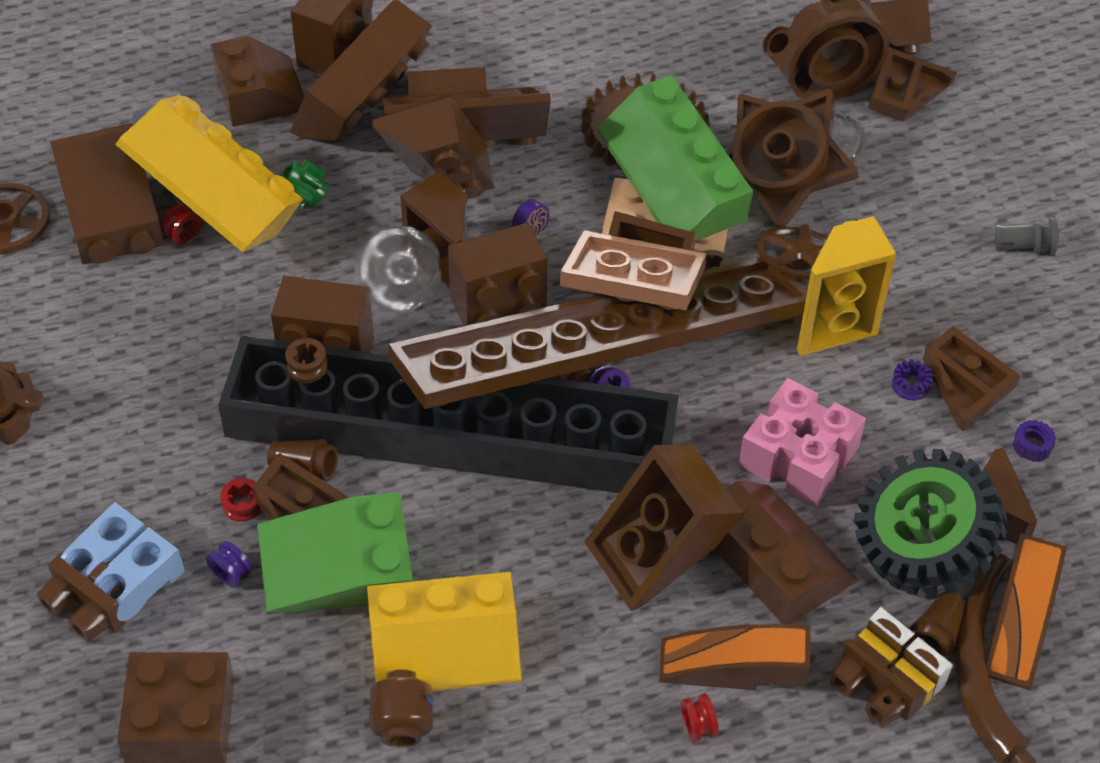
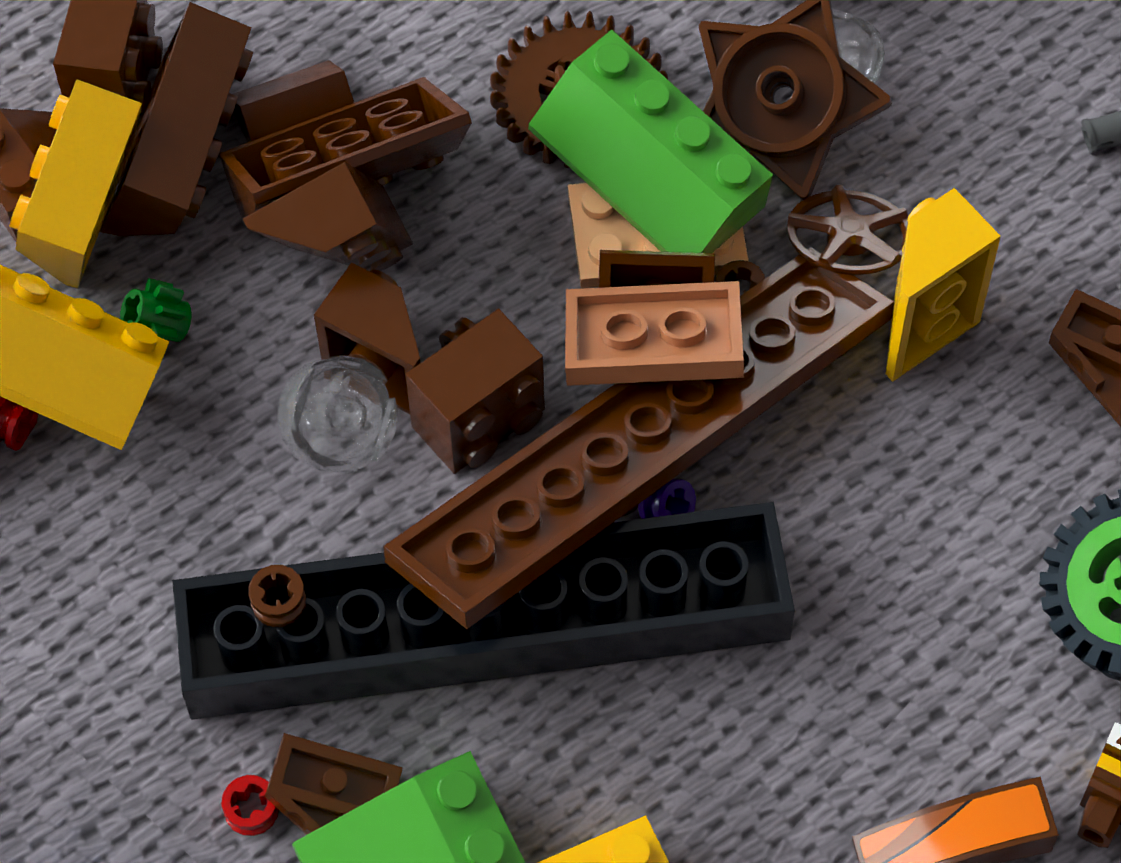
camera: 15 degrees left, 10 degrees up
(270, 93) = (75, 180): none -> yellow slope
(311, 455) = (317, 719): reddish brown cone -> none
(324, 311) = (269, 519): reddish brown brick -> none
(534, 213) = (479, 282): dark purple tile -> none
(661, 523) = (811, 690): reddish brown slope -> none
(780, 555) = (952, 675): reddish brown slope -> none
(801, 442) = (954, 543): bright pink brick -> none
(901, 374) = (1057, 369): dark purple bush -> none

